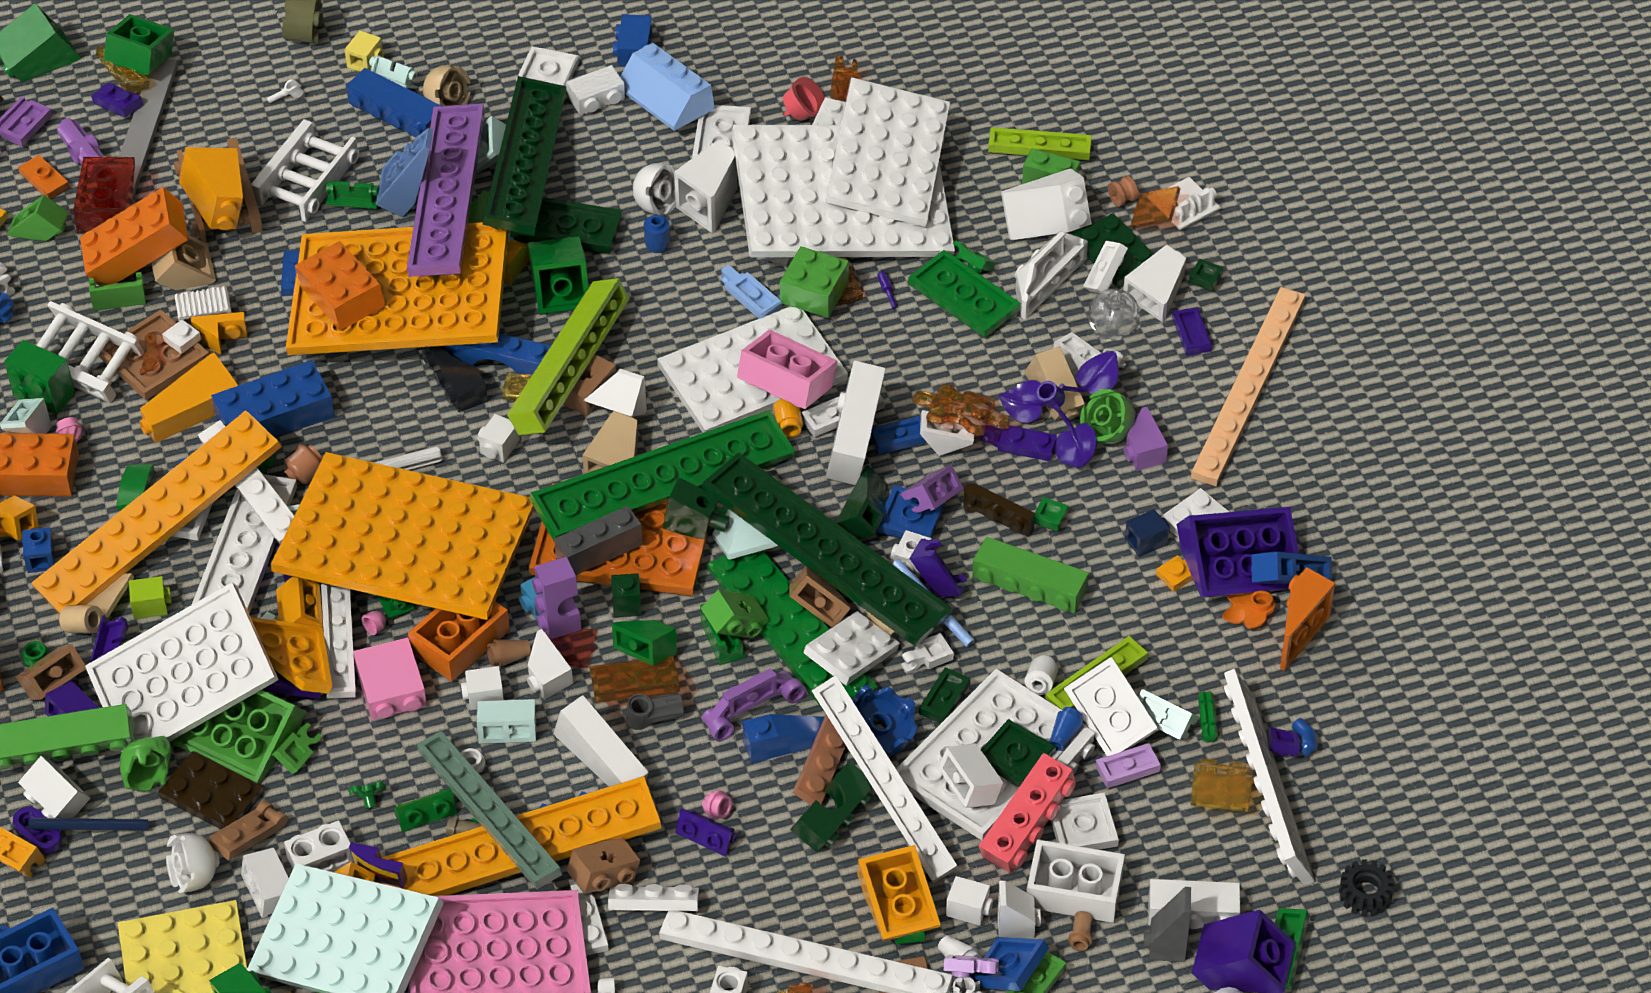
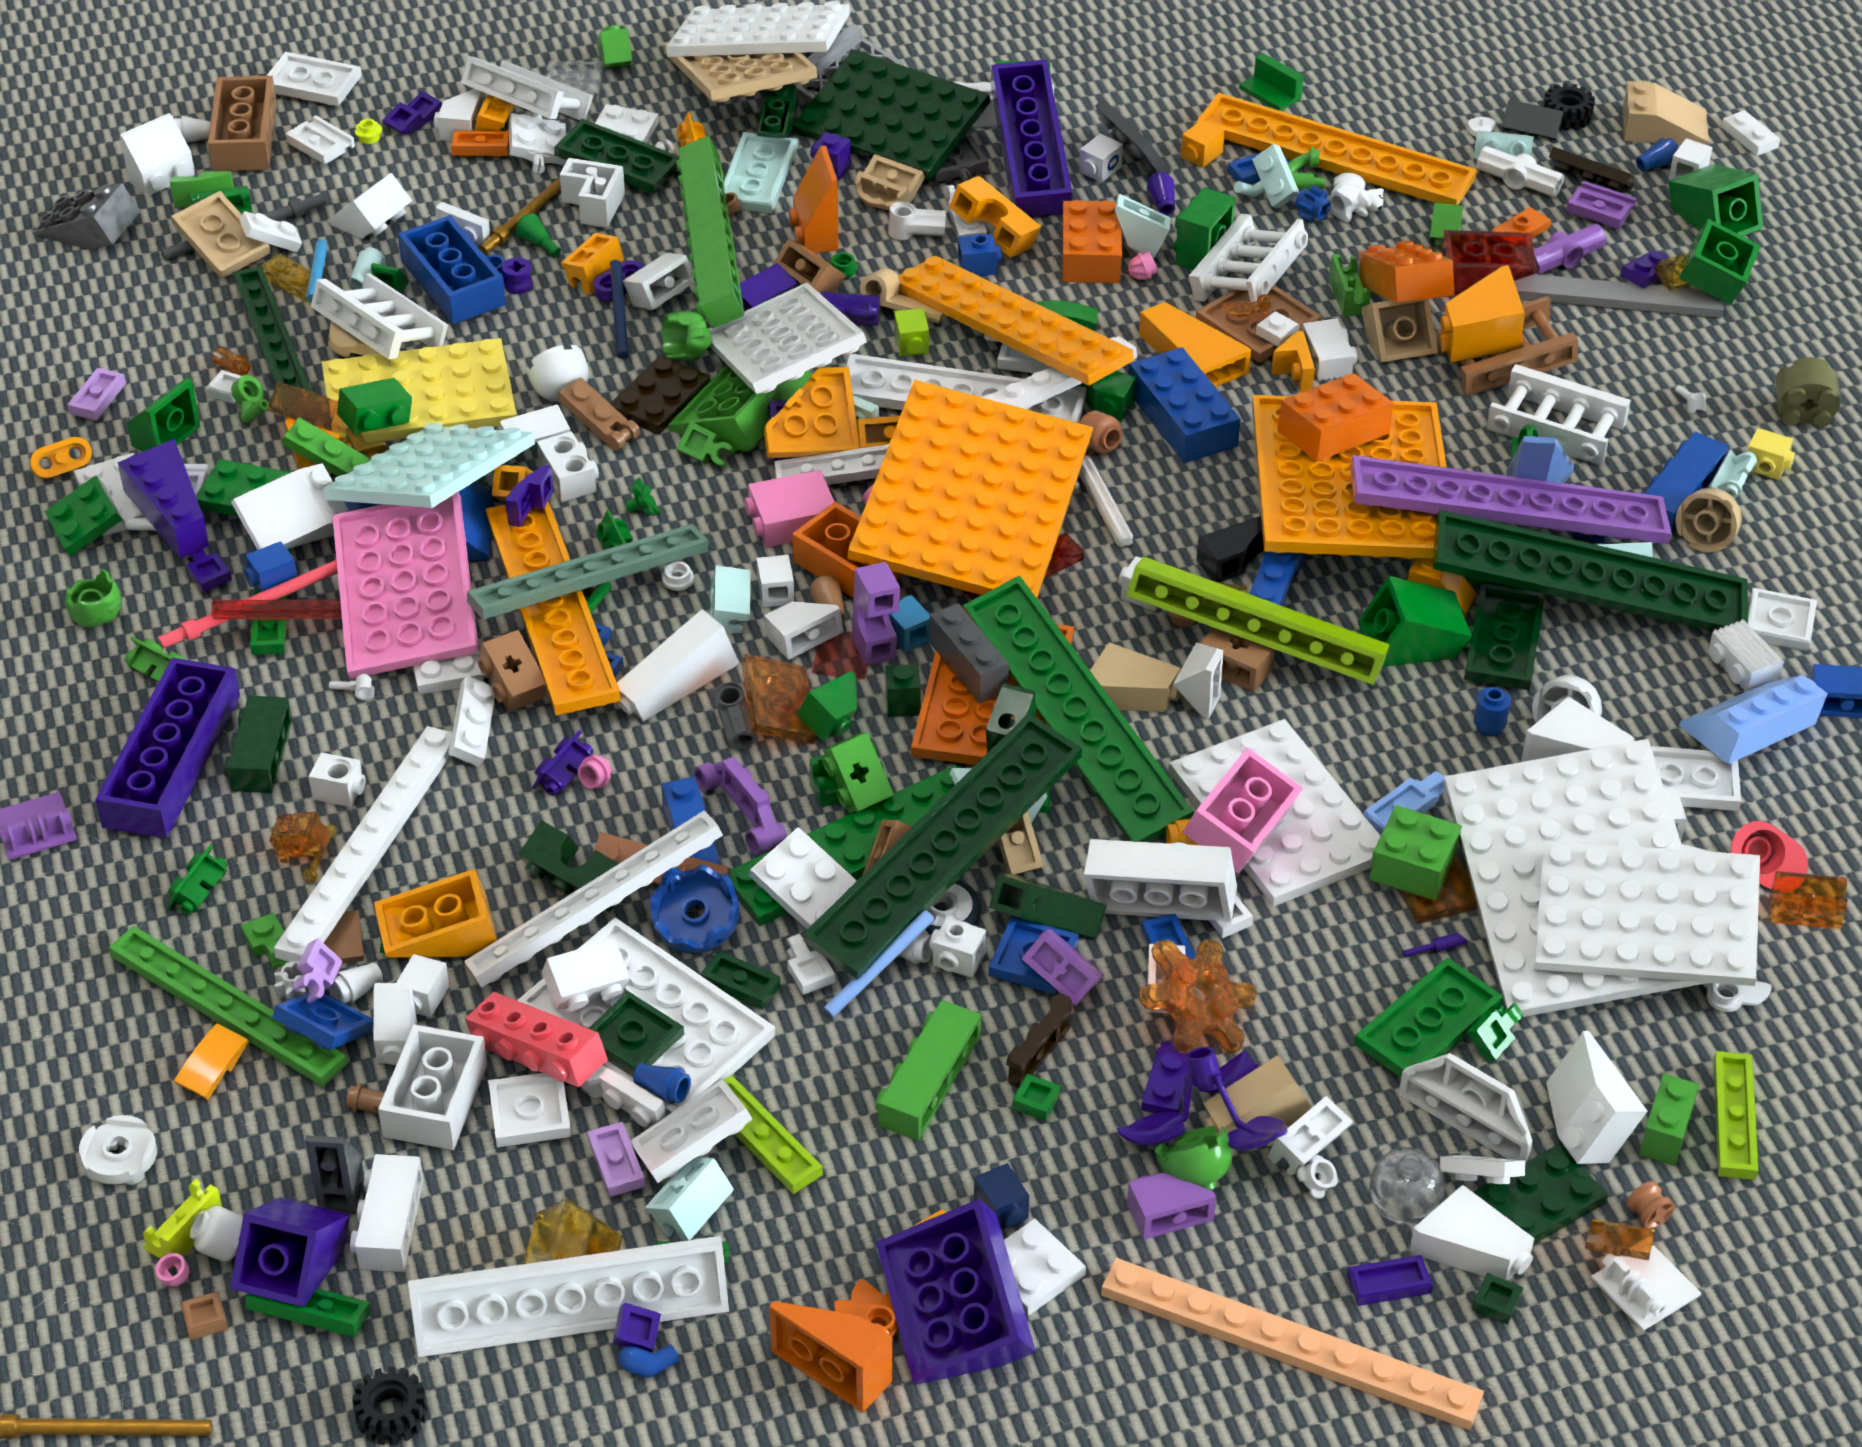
camera: 90 degrees right, 5 degrees down
(16, 906) = (517, 275): none -> dark purple wheel
(935, 570) = (927, 962): dark purple hinge -> none
(1041, 675) = (761, 1071): white brick -> none
(1282, 567) = (918, 1347): blue slope -> none

